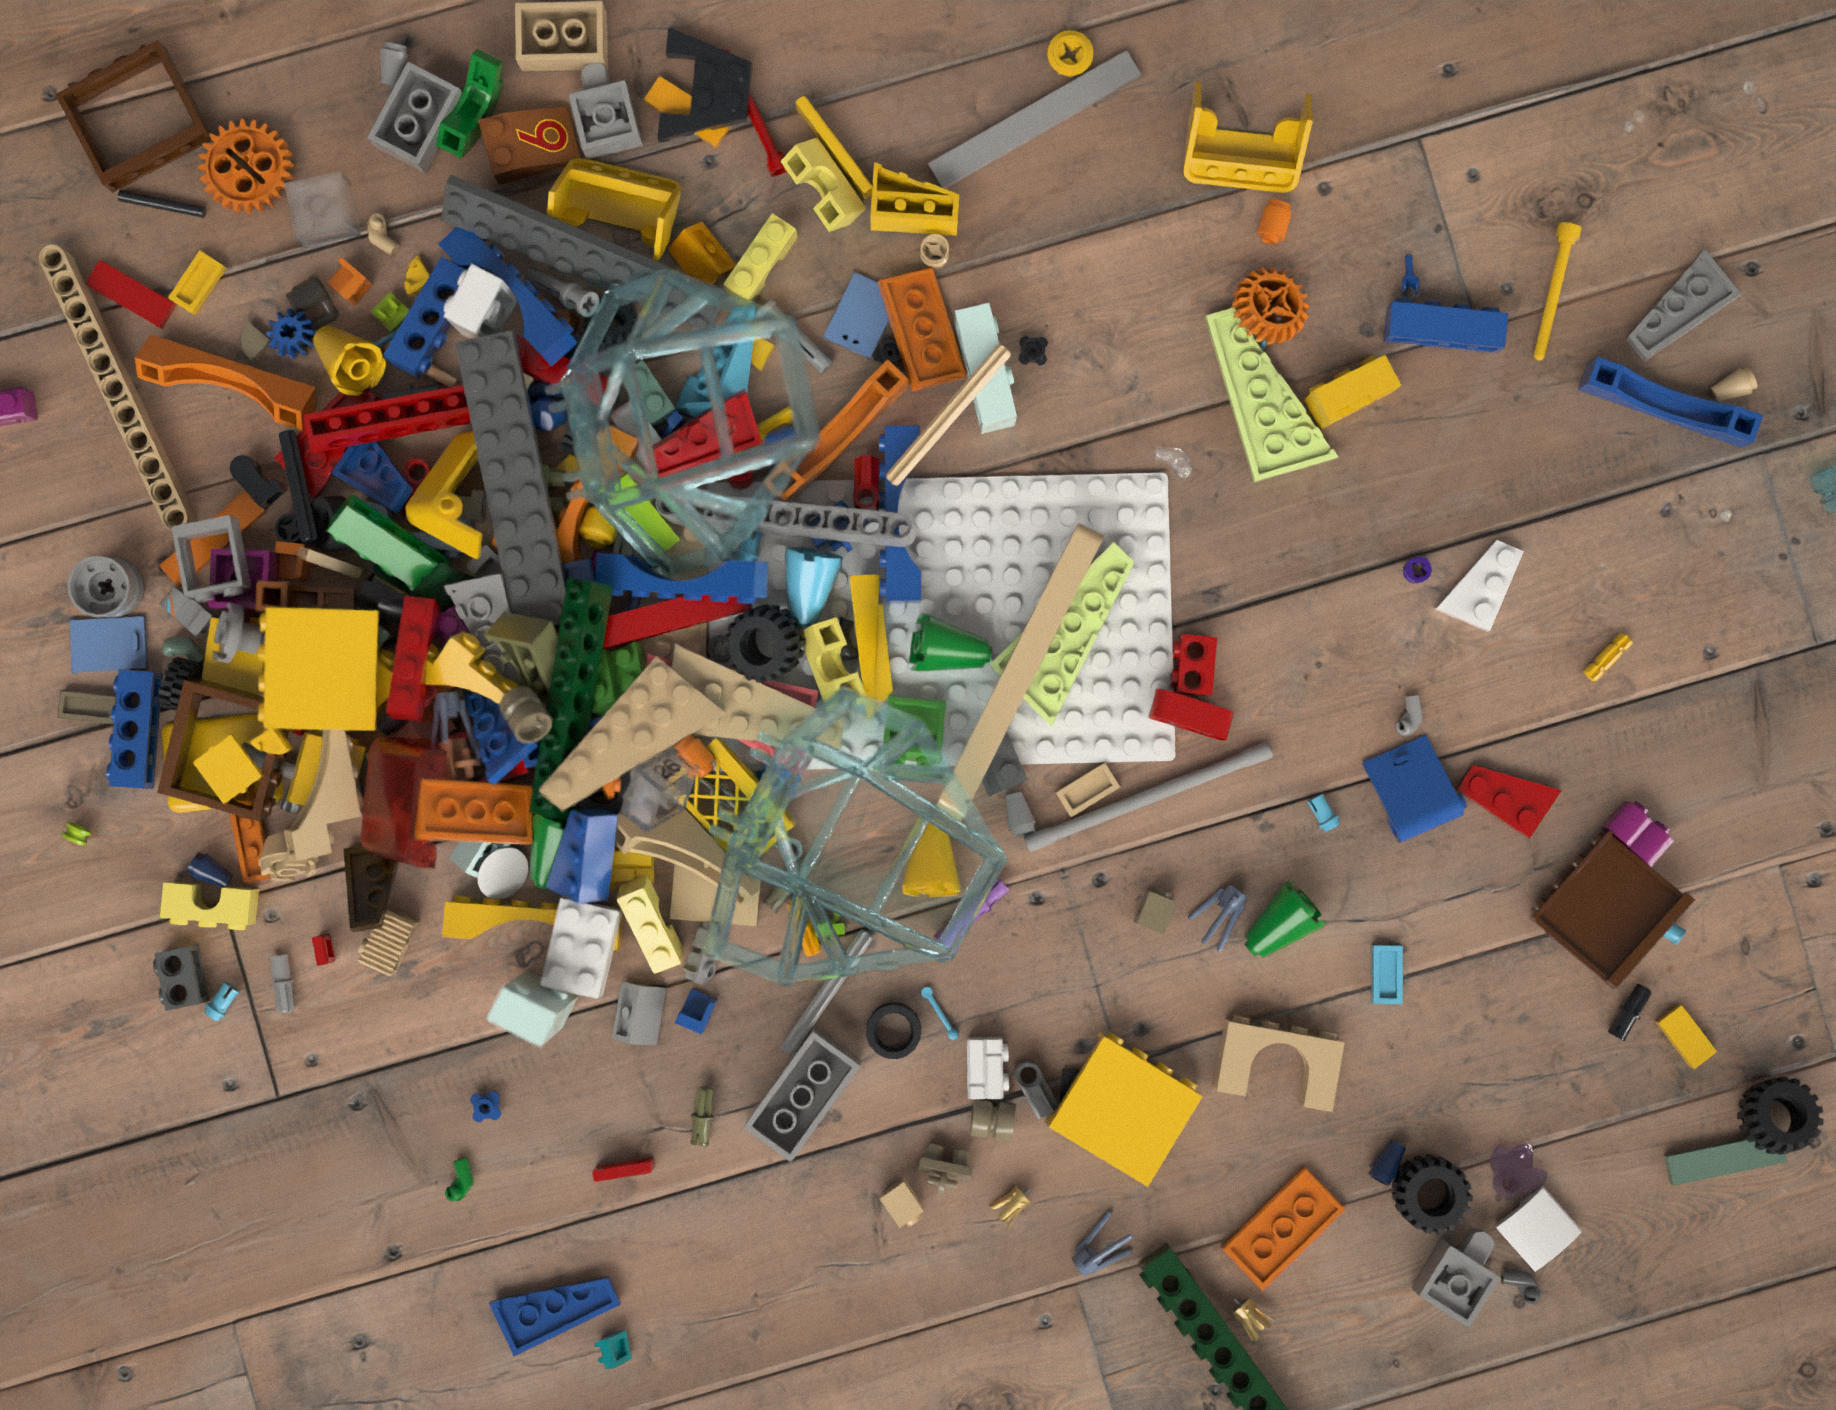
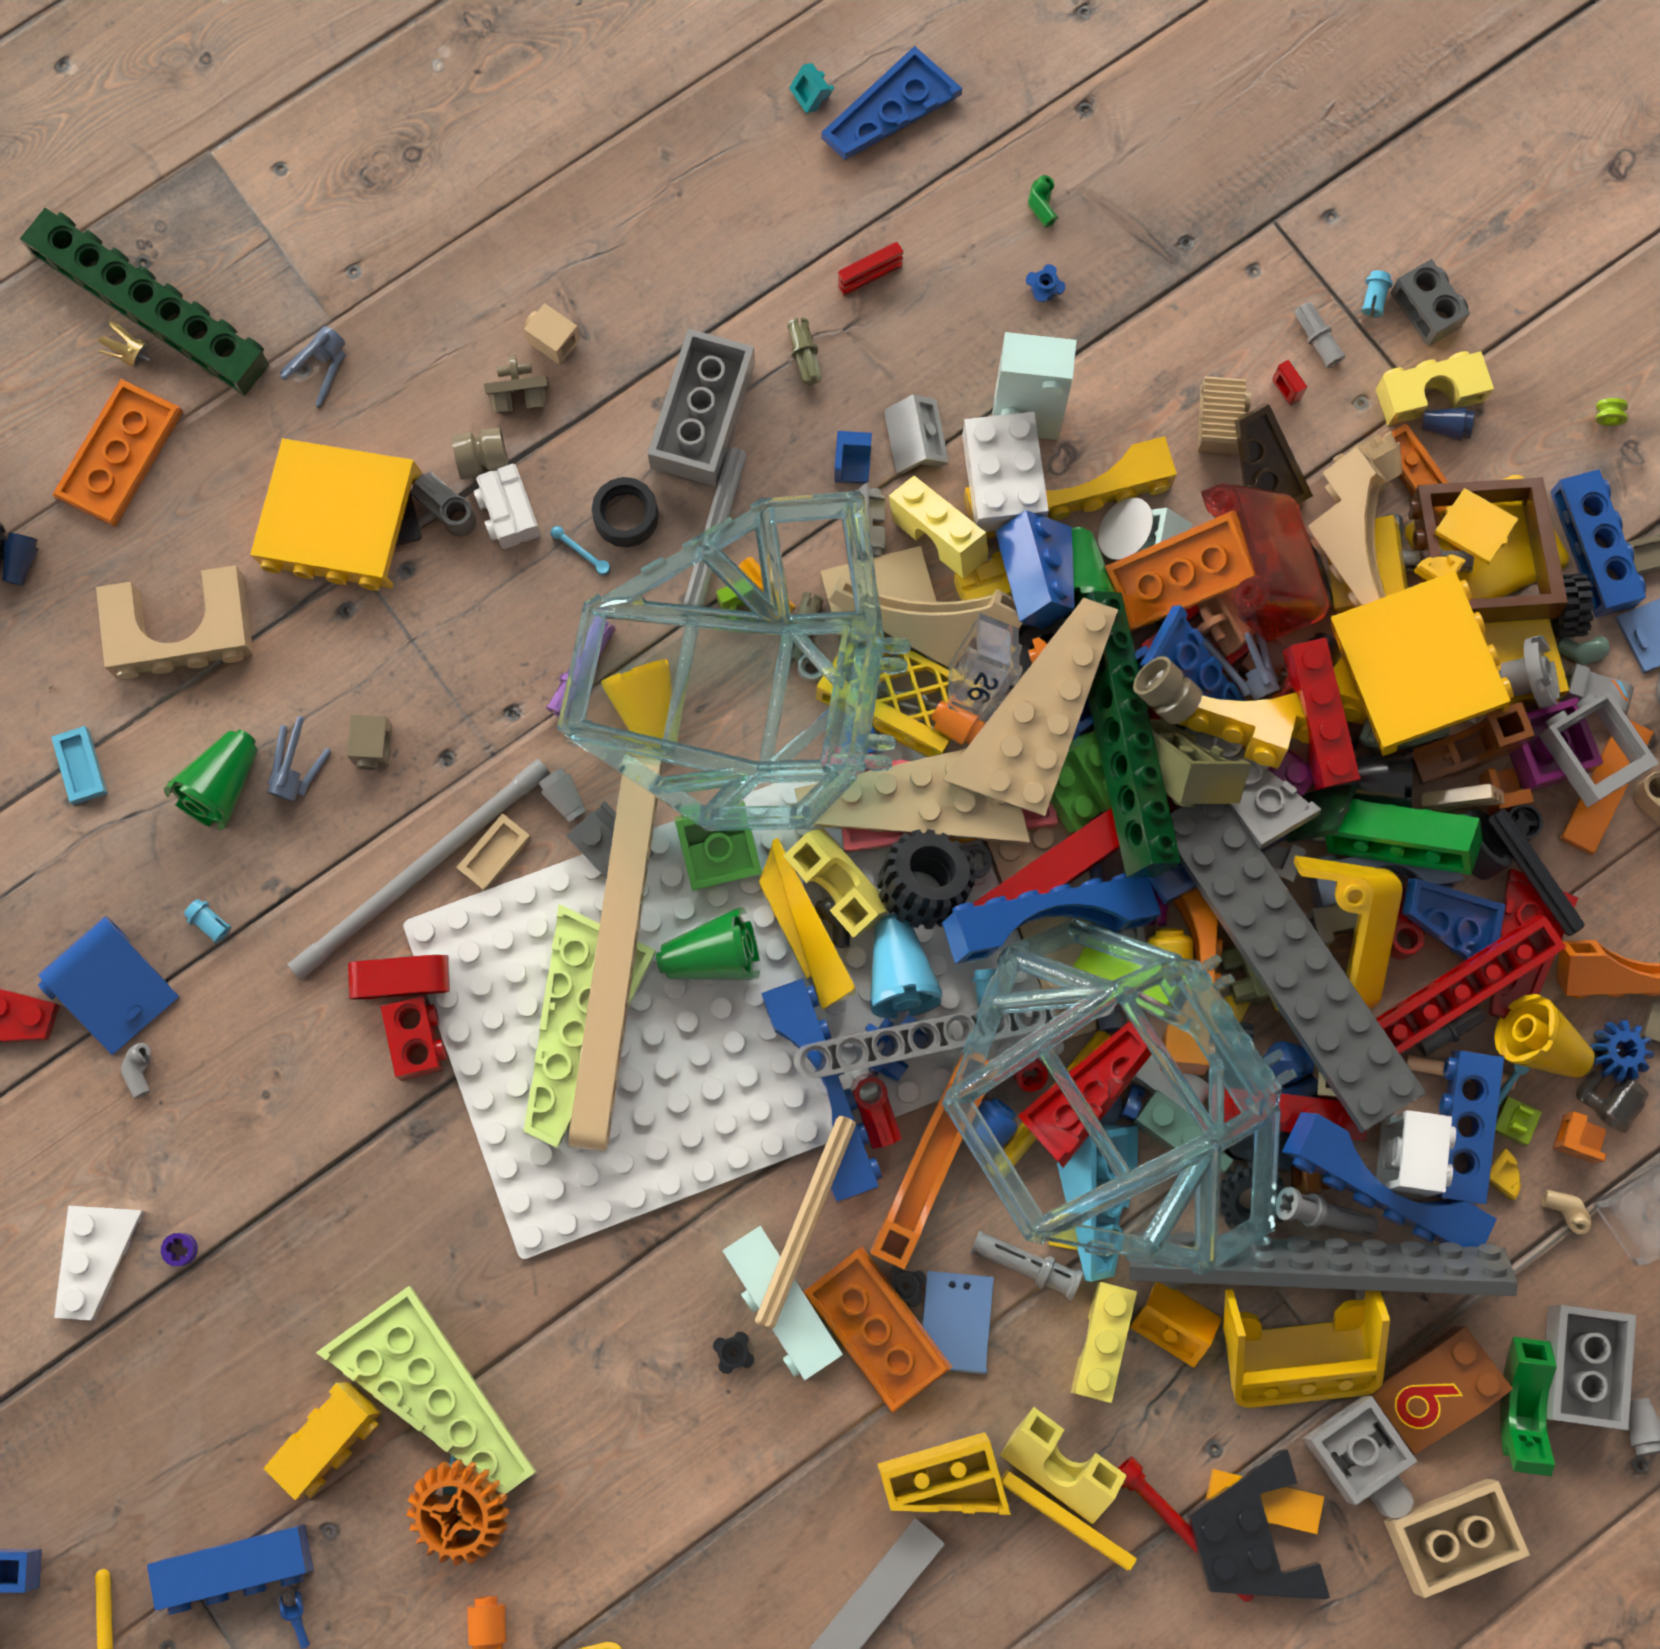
camera: 160 degrees right, 10 degrees down
(250, 477) = (1587, 863): black leg -> none
(934, 246) = (897, 1437): tan wheel -> none
(1017, 1201) = (422, 380): pearl gold piece -> none
(1176, 459) = (515, 1281): clear arm -> none

